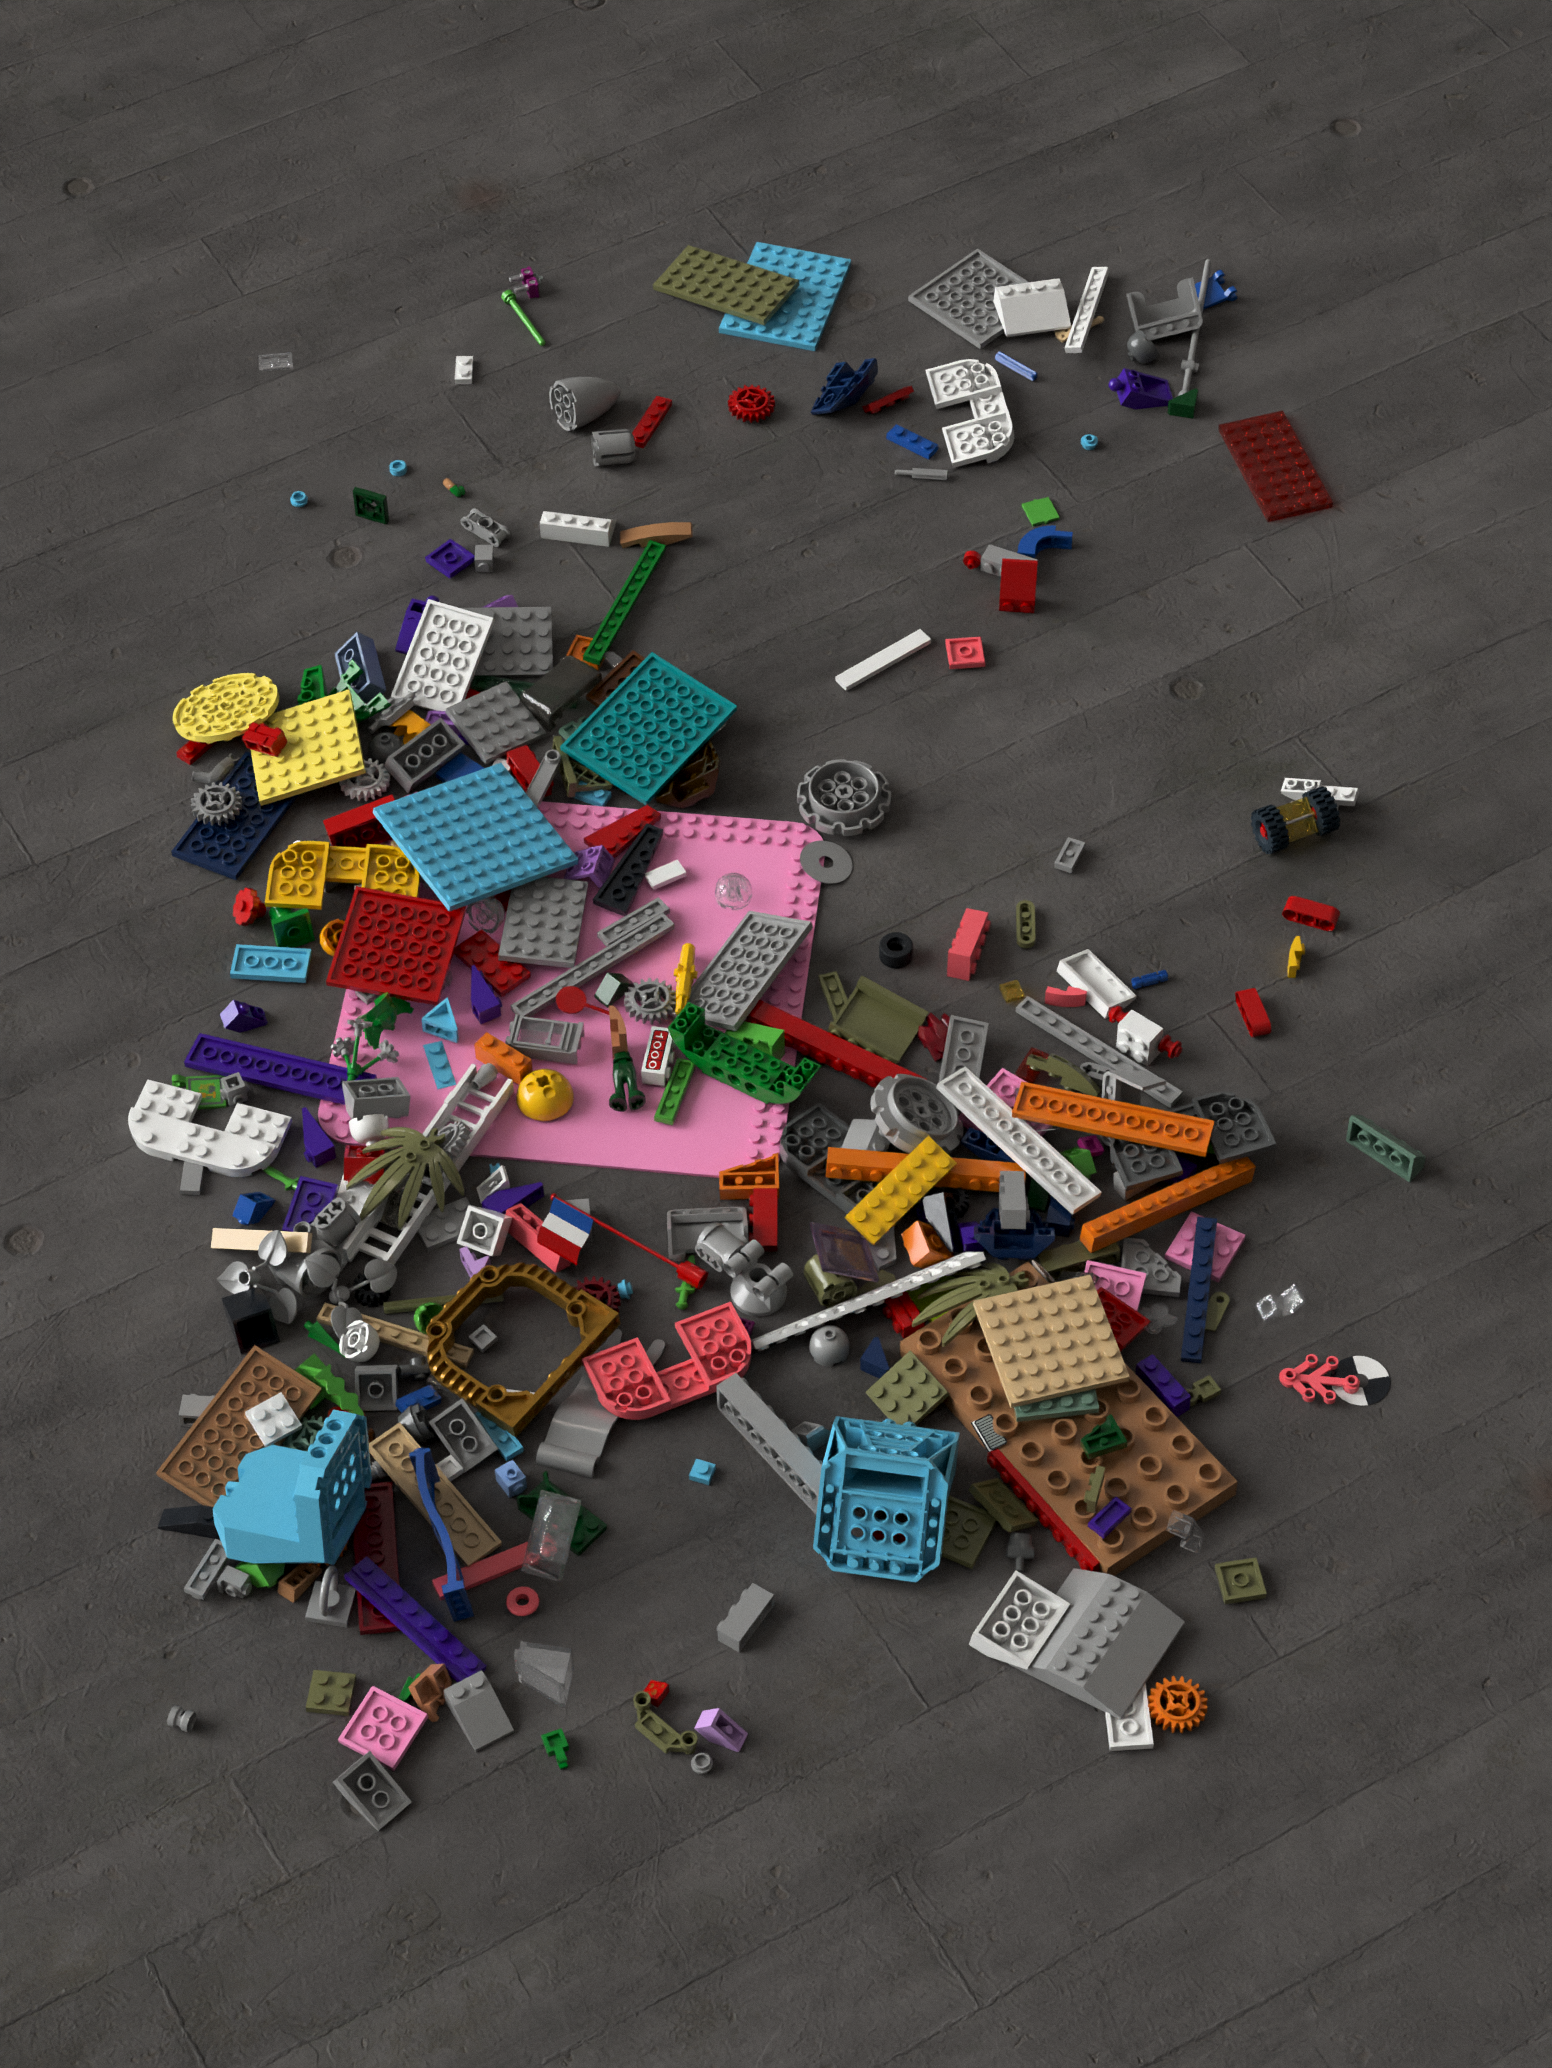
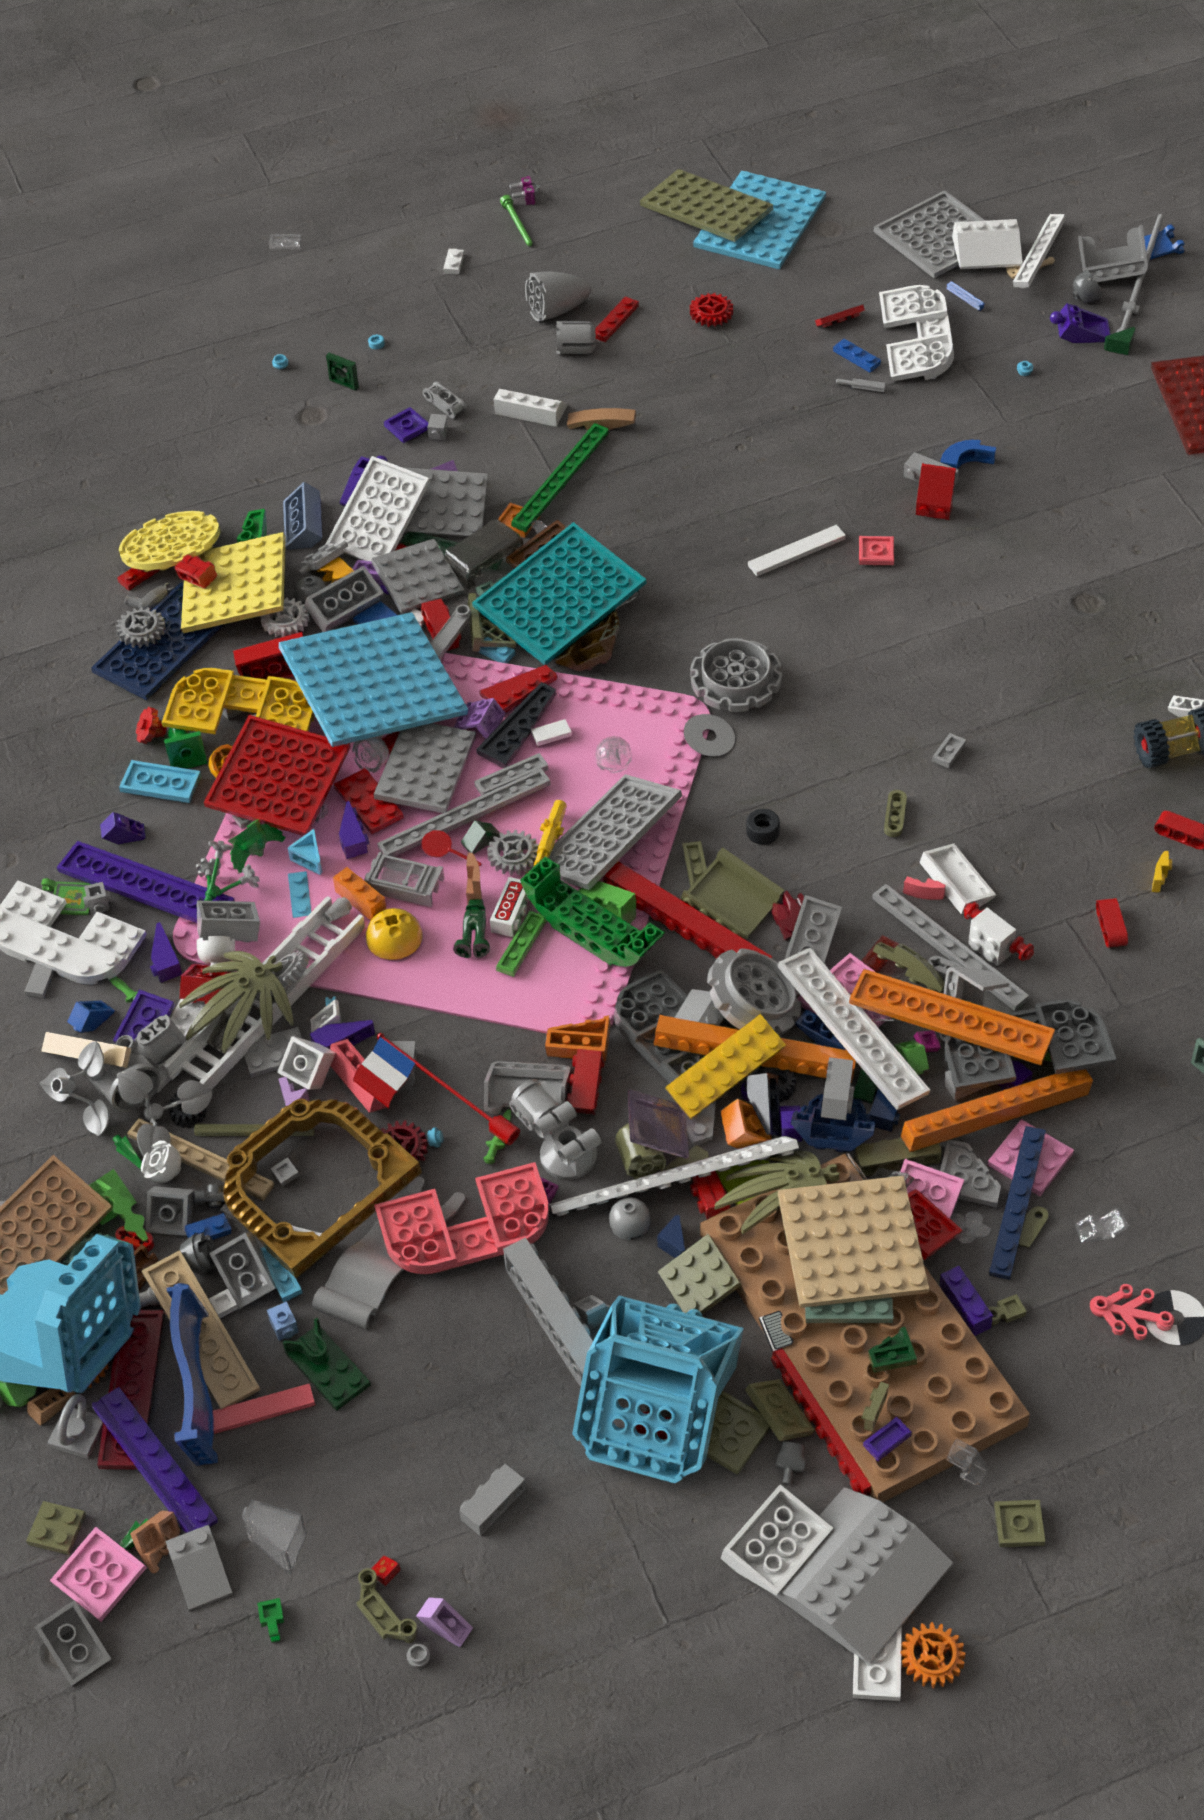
camera: 10 degrees right, 0 degrees up
(250, 1319) = (61, 1127): black slope -> none
(273, 1419) = (57, 1233): white plate -> none
(362, 710) = (292, 551): green wing -> none
(424, 1315) = (230, 1141): bright green hair -> none
(457, 491) = (422, 363): green arm -> none
(522, 1593) = (268, 1444): coral piece -> none
(551, 1536) = (309, 1387): clear windscreen -> none
(702, 1471) = (477, 1336): medium azure plate -> none
(845, 386) = (802, 300): dark blue wedge -> none
(967, 944) = (833, 828): coral wedge -> none
(972, 559) = (896, 465): red tile -> none
(1011, 991) = (871, 877): clear yellow plate -> none
(1040, 511) = (969, 427): bright green piece -> none
(1149, 979) = (1011, 879): blue axle -> none

